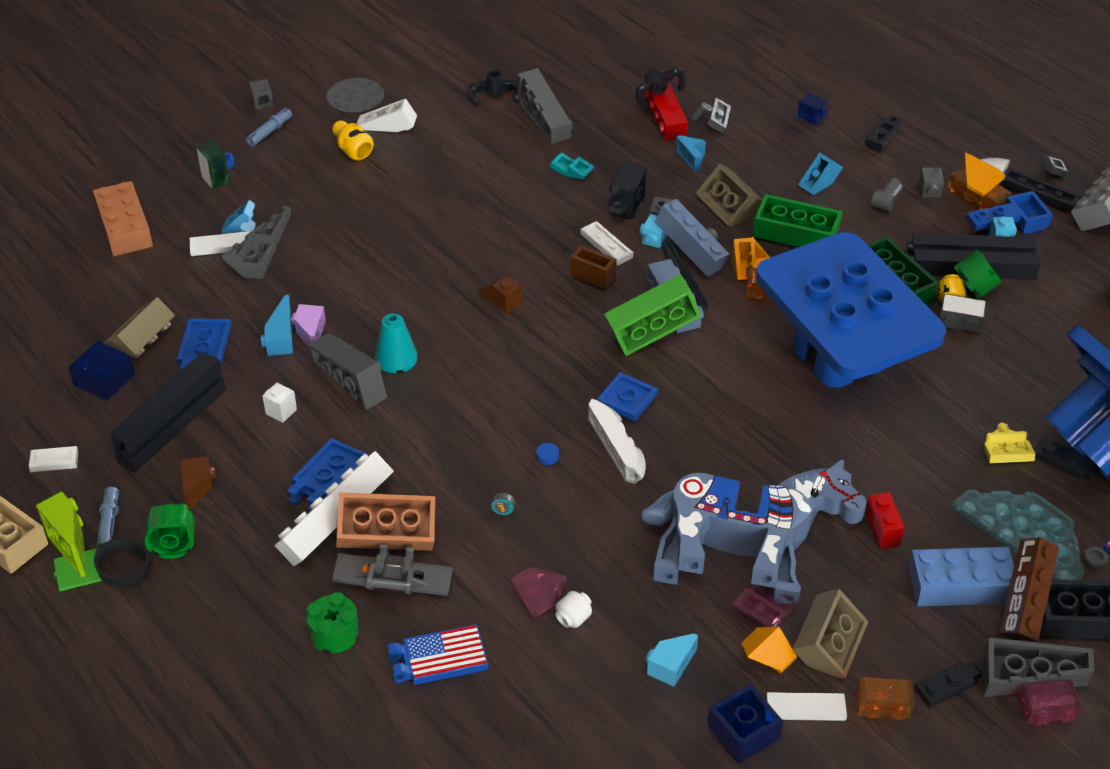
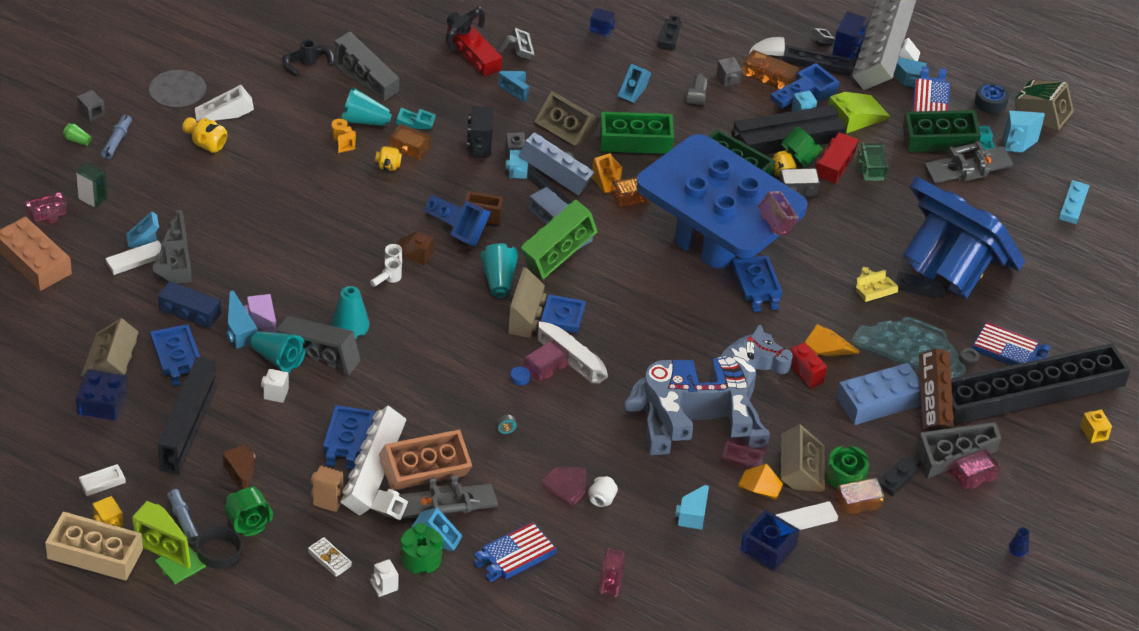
camera: 25 degrees left, 0 degrees up
(30, 494) = (108, 512): none -> yellow brick
(166, 179) = (47, 207): none -> clear pink slope
(232, 117) = (76, 134): none -> bright green cone
(234, 605) = (329, 557): none -> white tile
(242, 300) = (189, 304): none -> dark blue brick
(265, 526) = (327, 488): none -> medium nougat brick
(275, 646) = (384, 578): none -> white brick
(304, 367) = (280, 349): none -> teal cone
(323, 562) = (389, 504): none -> white brick
(369, 608) = (435, 519): none -> dark azure slope
(468, 306) = (393, 266): none -> white beam
(489, 169) = (344, 135): none -> light orange leg
(519, 146) = (365, 110): none -> teal cone
(522, 199) = (388, 158): none -> yellow head
(532, 711) = (612, 572): none -> clear pink brick
(553, 187) = (410, 141): none -> clear orange brick
(565, 273) = (467, 221): none -> blue plate
(578, 332) = (499, 267): none -> teal cone
(582, 443) = (546, 360): none -> clear pink brick
(587, 376) = (526, 305): none -> dark tan slope
(606, 242) = (478, 182): white tile -> none
(868, 411) = (758, 281): none -> blue tile
(881, 655) = (847, 466): none -> green brick
(900, 334) = (778, 212): none -> clear pink brick
(922, 500) = (828, 343): none -> light orange slope
(981, 175) = (771, 58): light orange slope -> none
(1018, 295) = (836, 157): none -> red brick
(1060, 308) = (873, 161): none -> clear green brick
(1063, 250) = (857, 110): none -> lime slope
(1083, 169) = (850, 35): none -> clear blue brick

